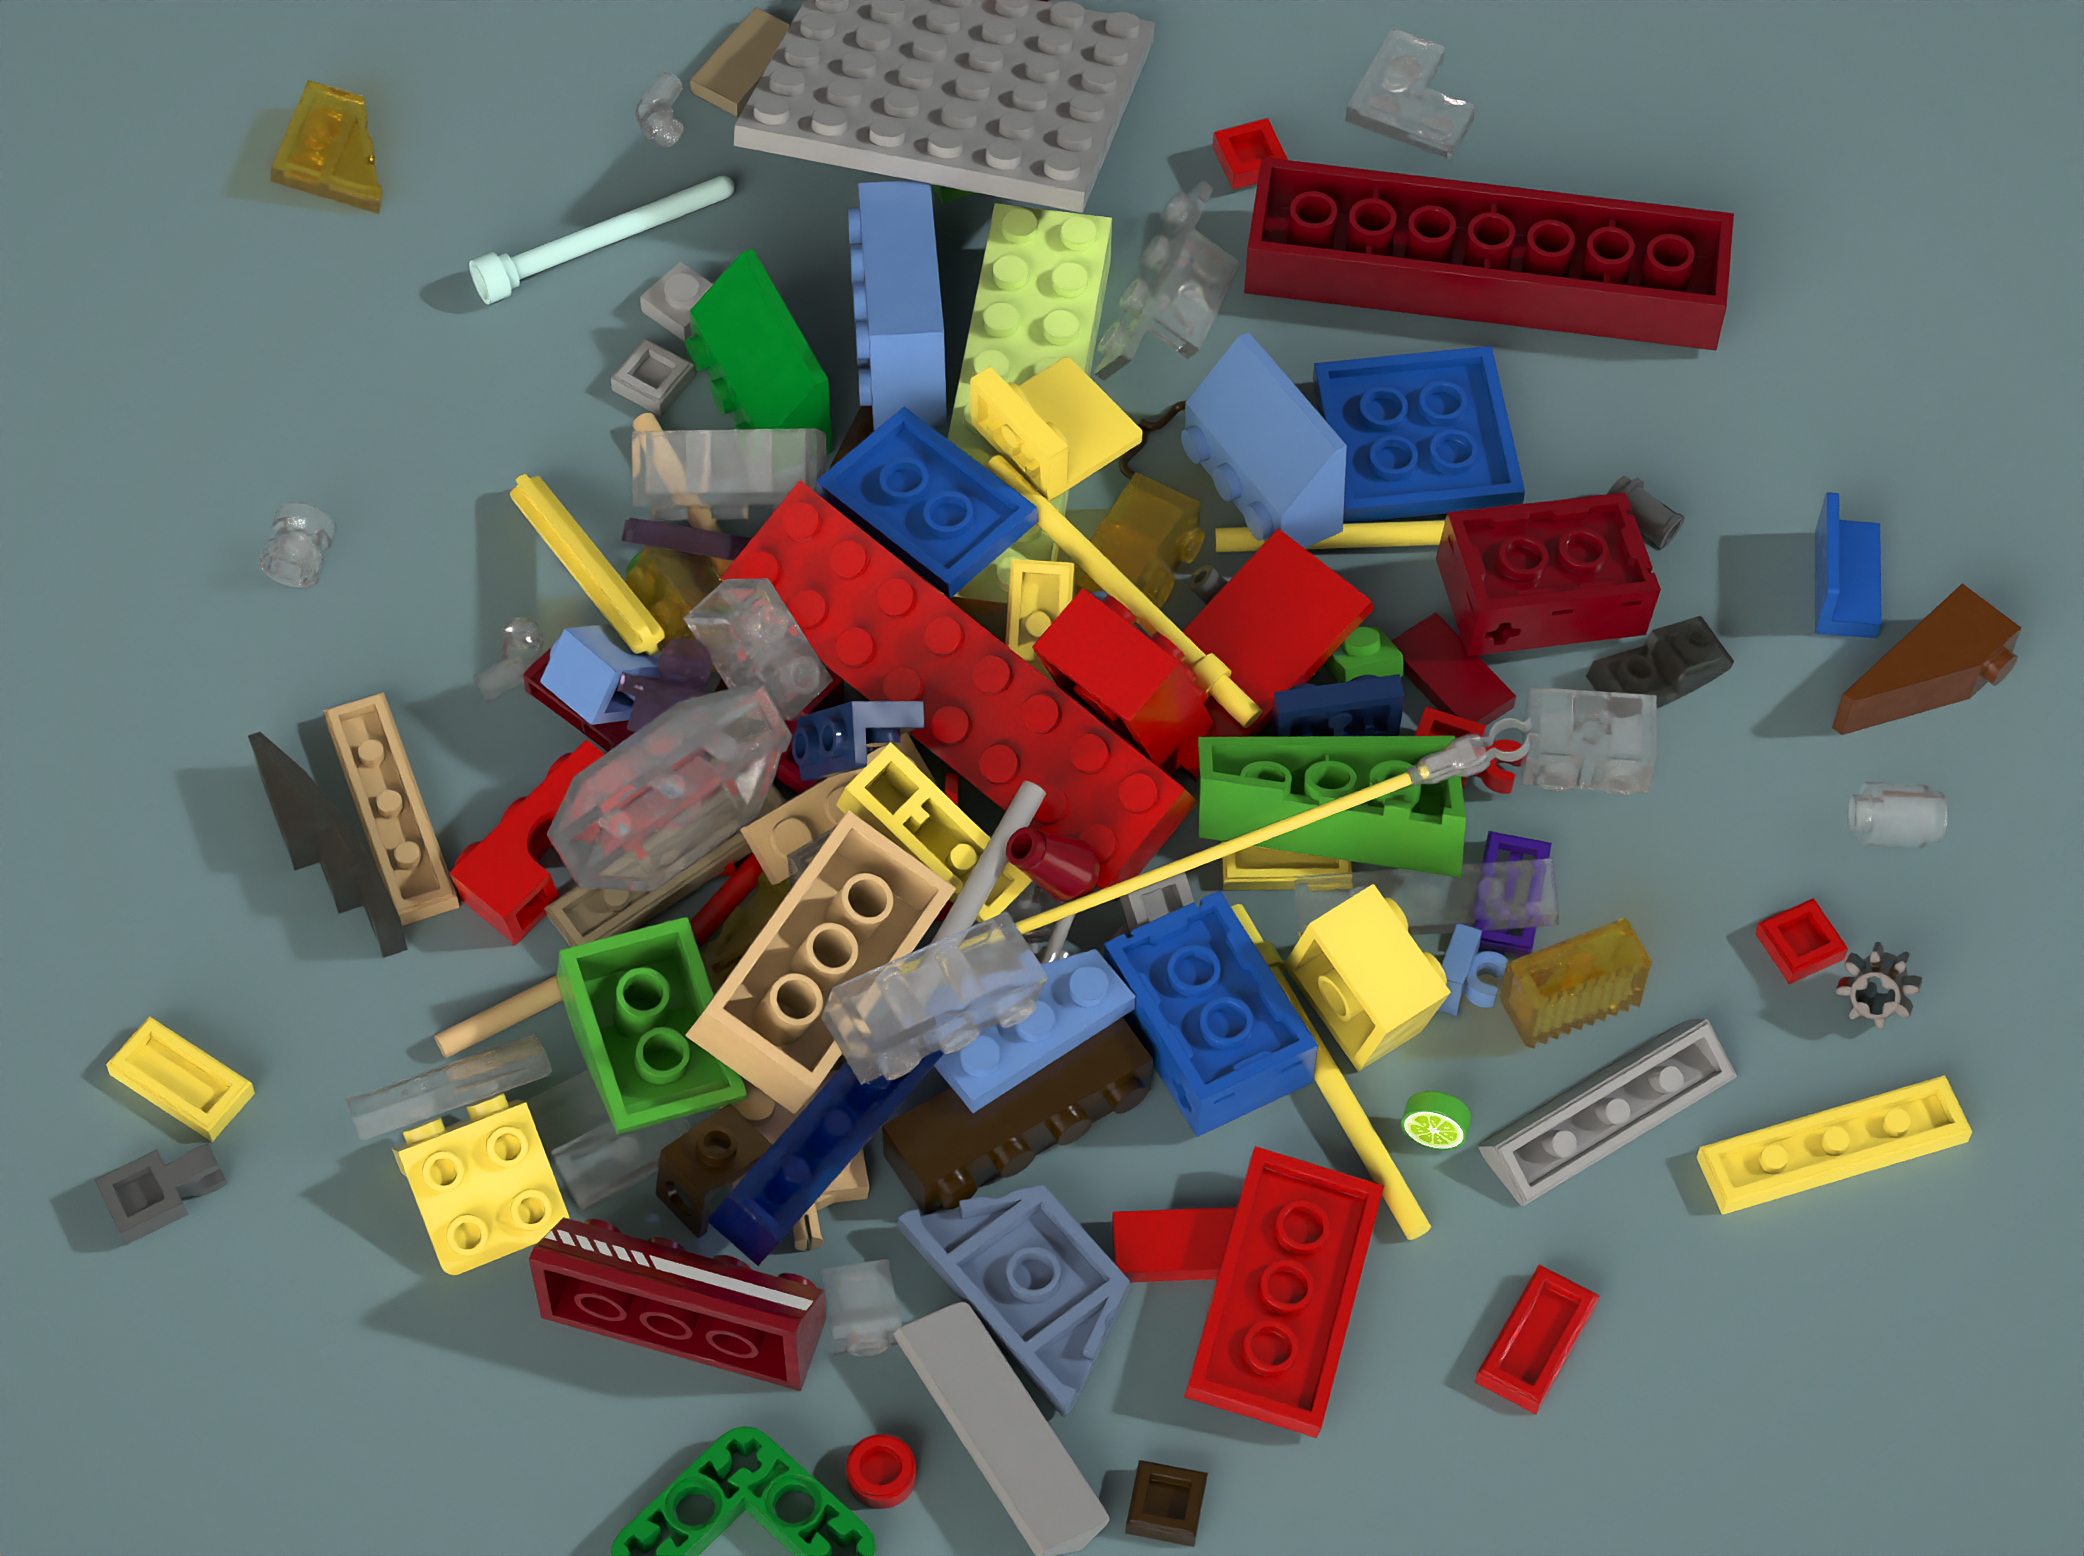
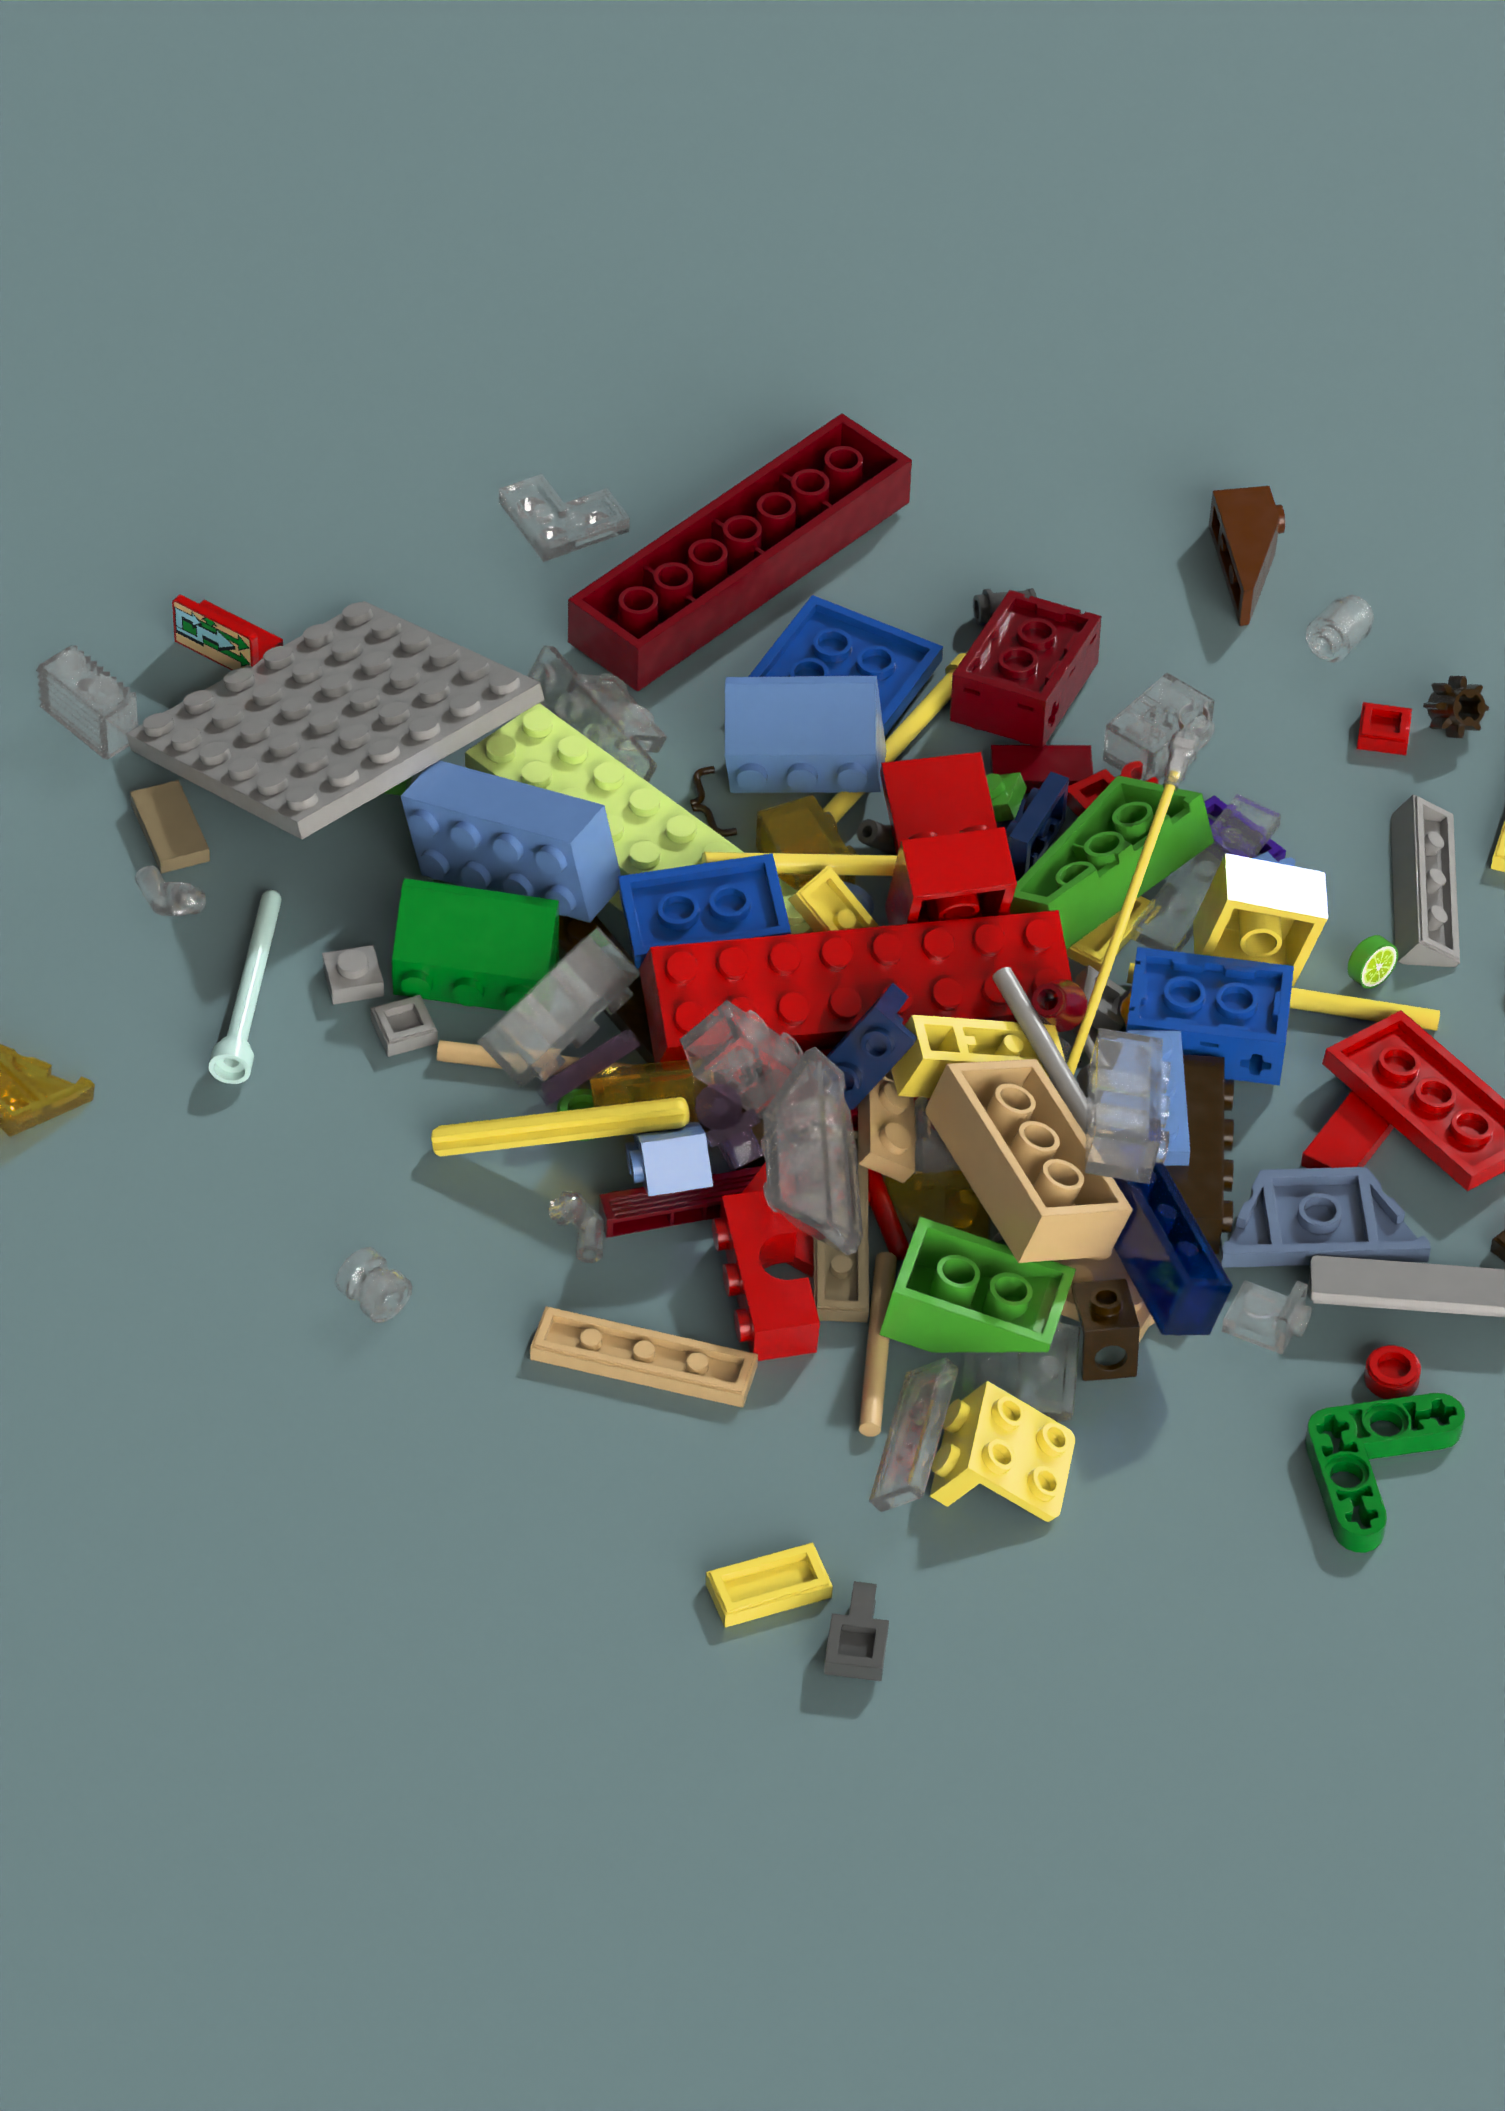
camera: 55 degrees left, 10 degrees down
(321, 834) = (630, 1397): clear smoke slope -> none
(678, 1301) = (1196, 1395): dark red slope -> none
(1052, 425) = (704, 815): light yellow bracket -> none
(1241, 150) = (528, 619): red plate -> none
(1575, 982) = (1340, 831): clear yellow brick -> none
(1668, 665) = (1128, 667): clear smoke slope -> none
(1846, 574) = (1137, 546): blue panel -> none

